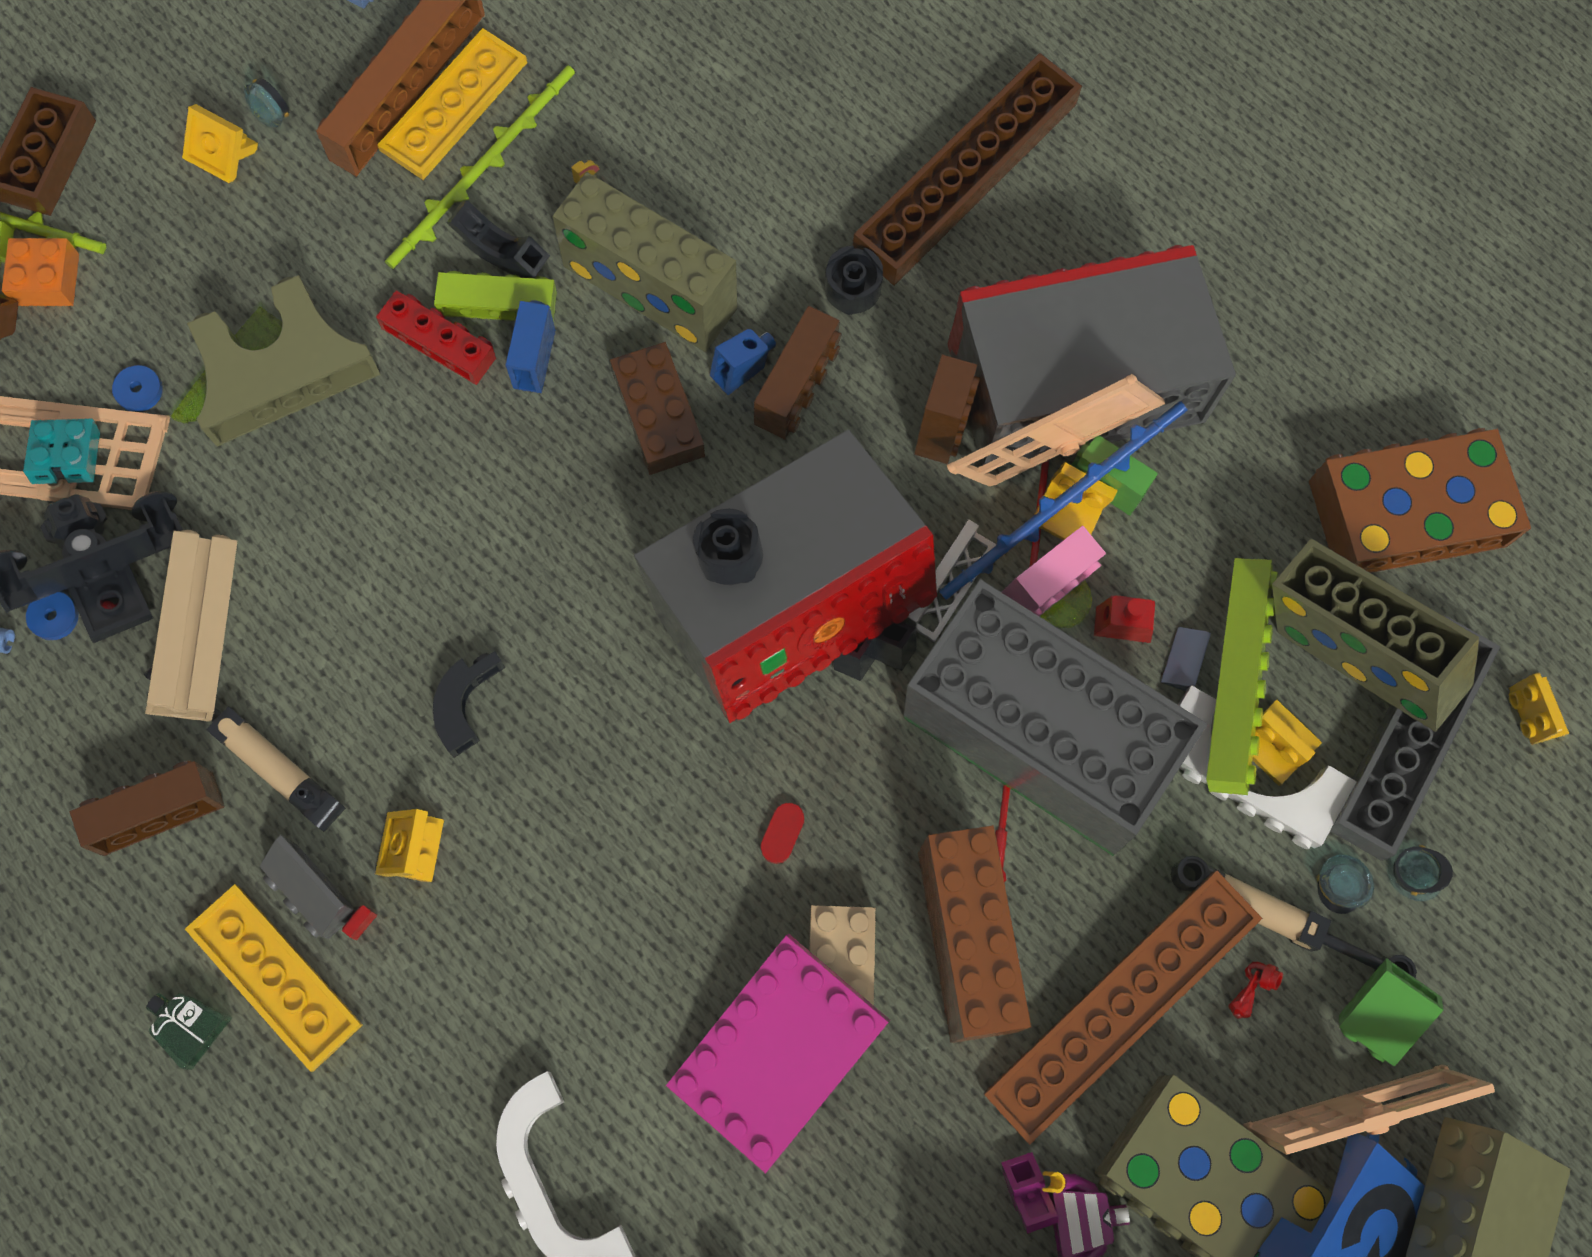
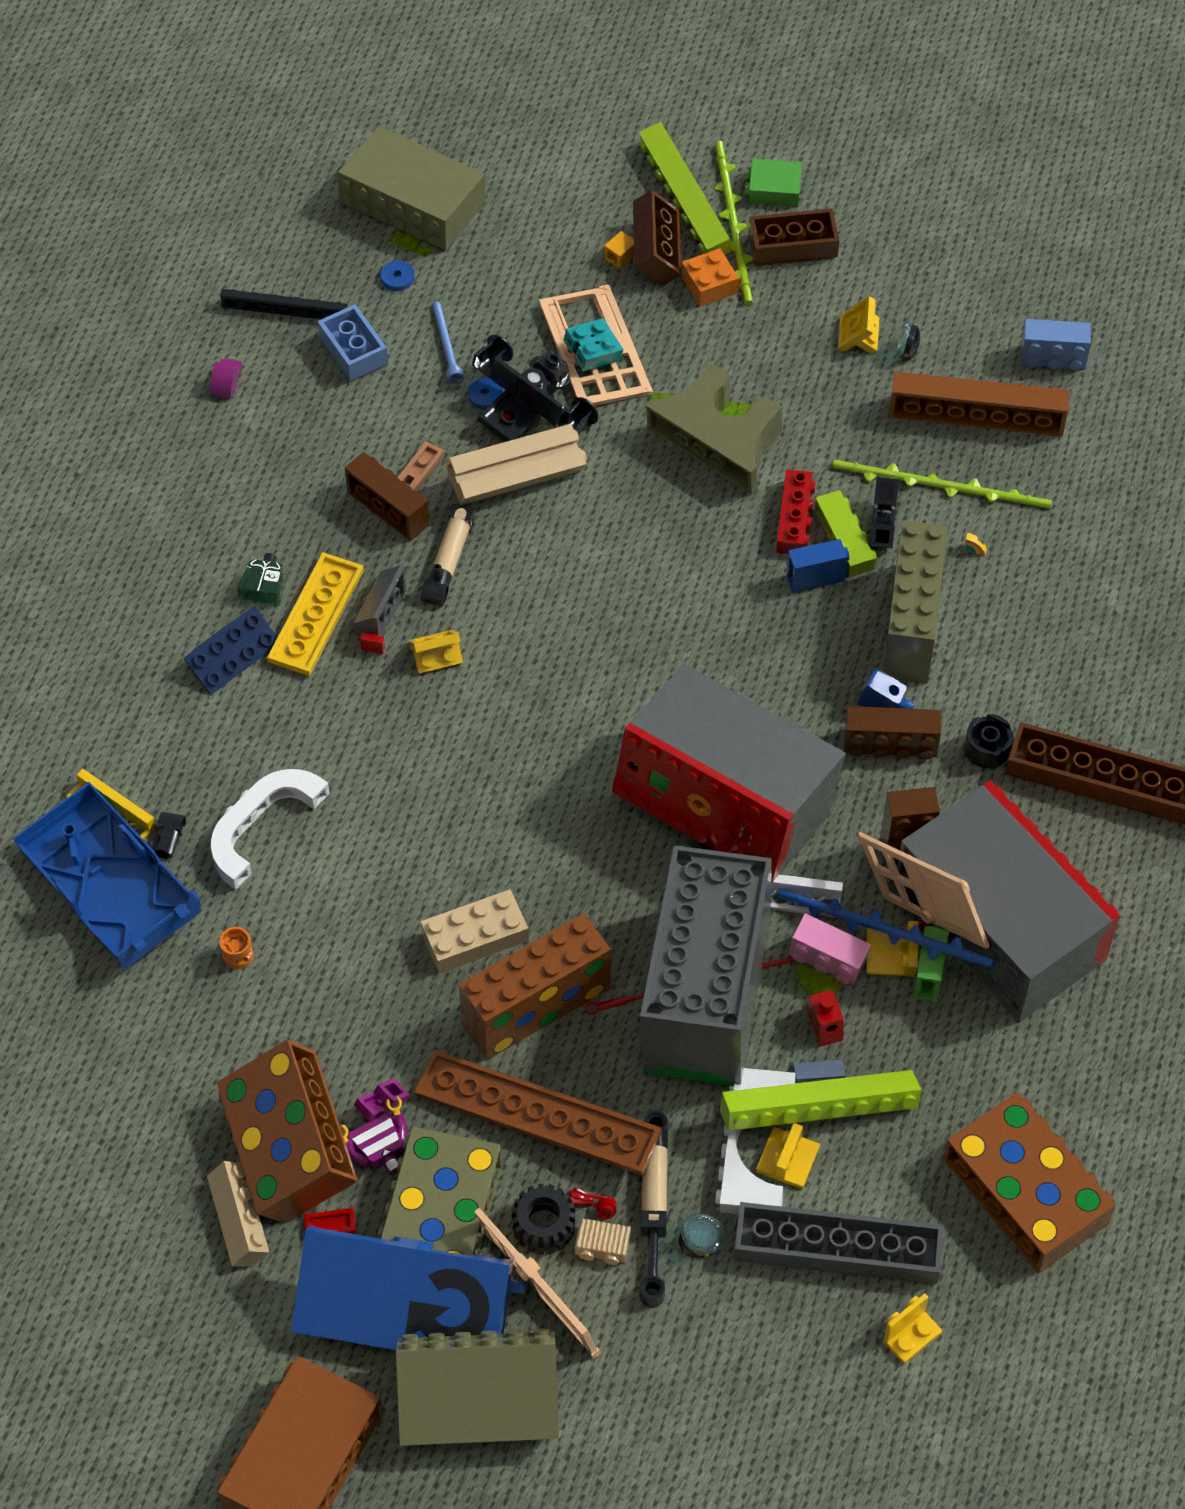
camera: 70 degrees right, 15 degrees down
(120, 745) = (422, 465): none -> nougat plate
(128, 380) = (661, 374): blue piece -> none
(271, 1116) = (231, 650): none -> dark blue bracket
(452, 104) = (978, 446): yellow plate -> none
(452, 697) = (543, 631): black arch -> none
(657, 408) = (818, 661): reddish brown brick -> none
(728, 547) = (712, 704): black brick -> none
(777, 1052) = (402, 908): dark pink plate -> none
(782, 833) = (554, 862): red tile -> none
(1288, 1054) = (547, 1237): none -> black tyre
(1312, 1001) = (602, 1241): none -> tan brick
(1375, 634) = (886, 1157): olive brick -> none
(1390, 1013) = (617, 1288): bright green brick -> none
(1419, 872) = (737, 1288): clear light blue piece -> none

